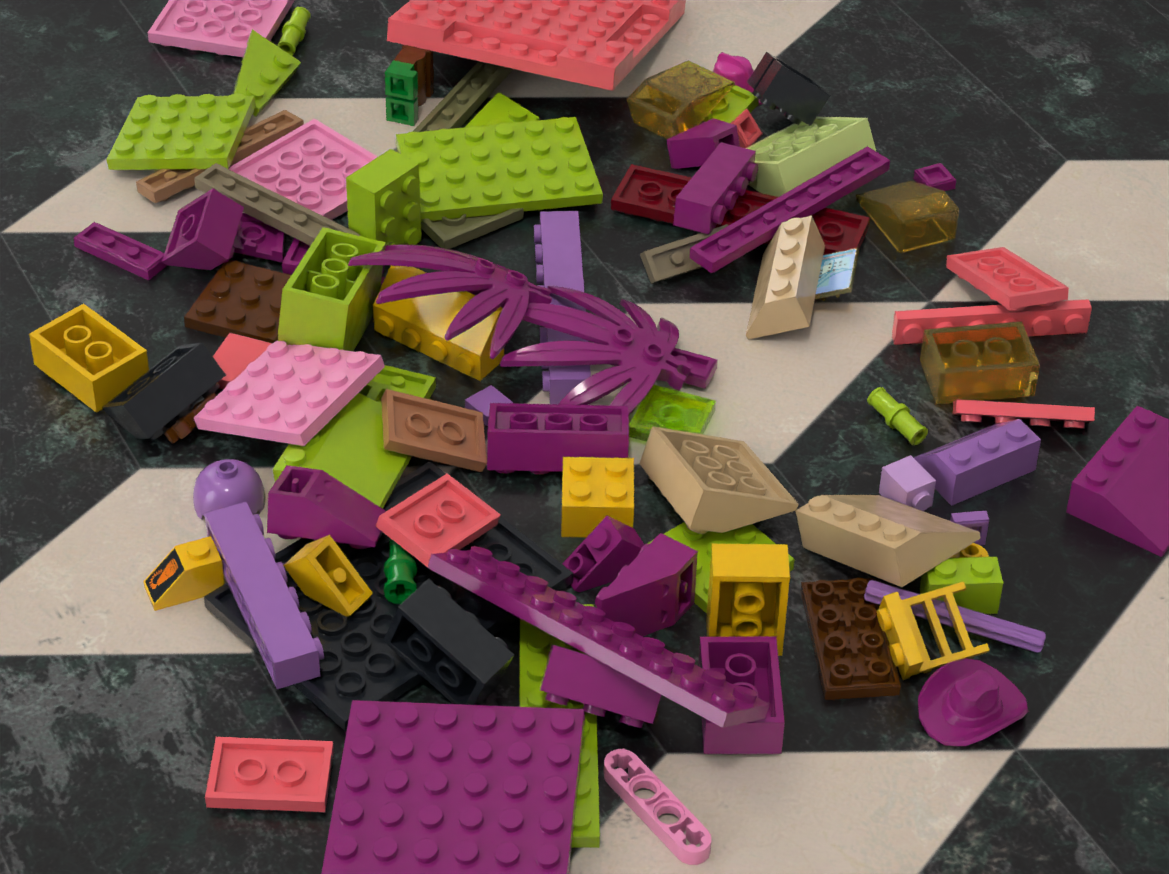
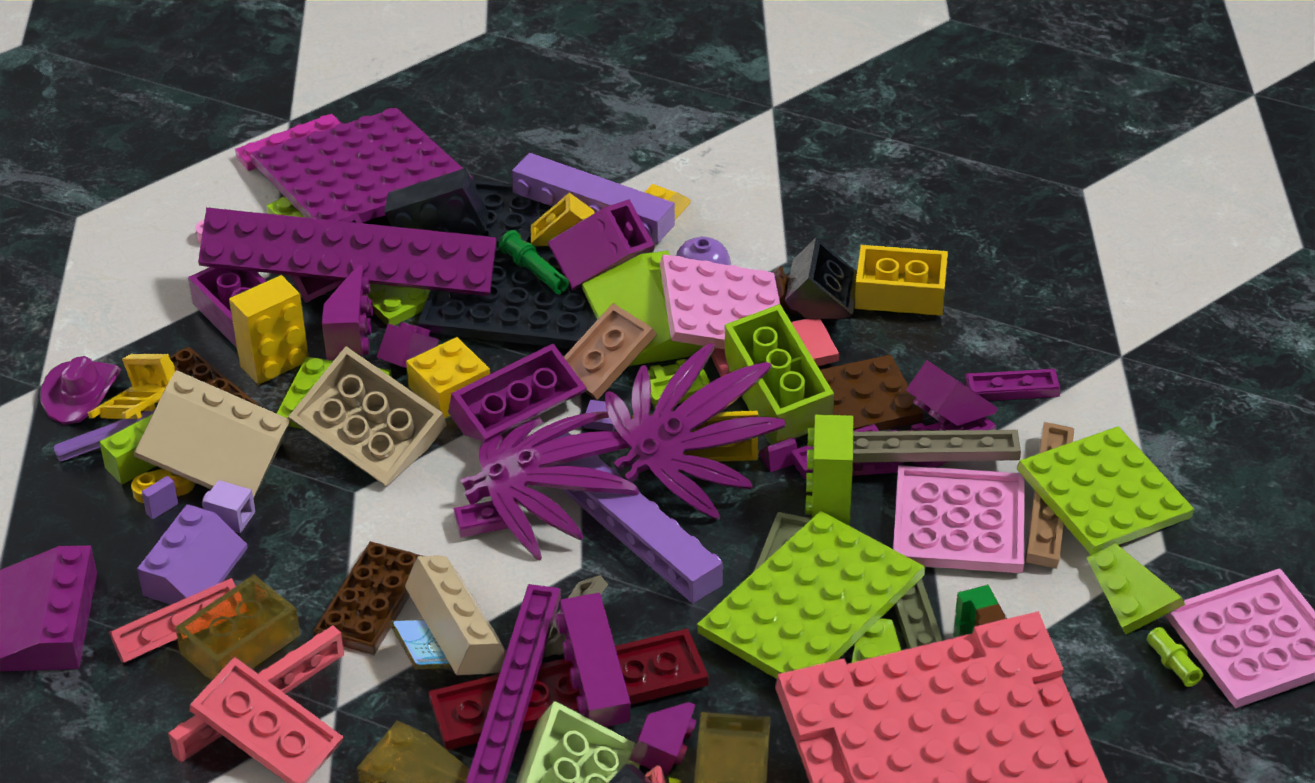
camera: 145 degrees right, 0 degrees up
(269, 774) = (489, 143): coral plate -> none
(438, 519) = (525, 280): coral plate -> none
(672, 411) = (446, 466): clear neon green plate -> none
(834, 360) = (370, 597): none -> reddish brown tile
(897, 416) = (280, 565): lime pin -> none

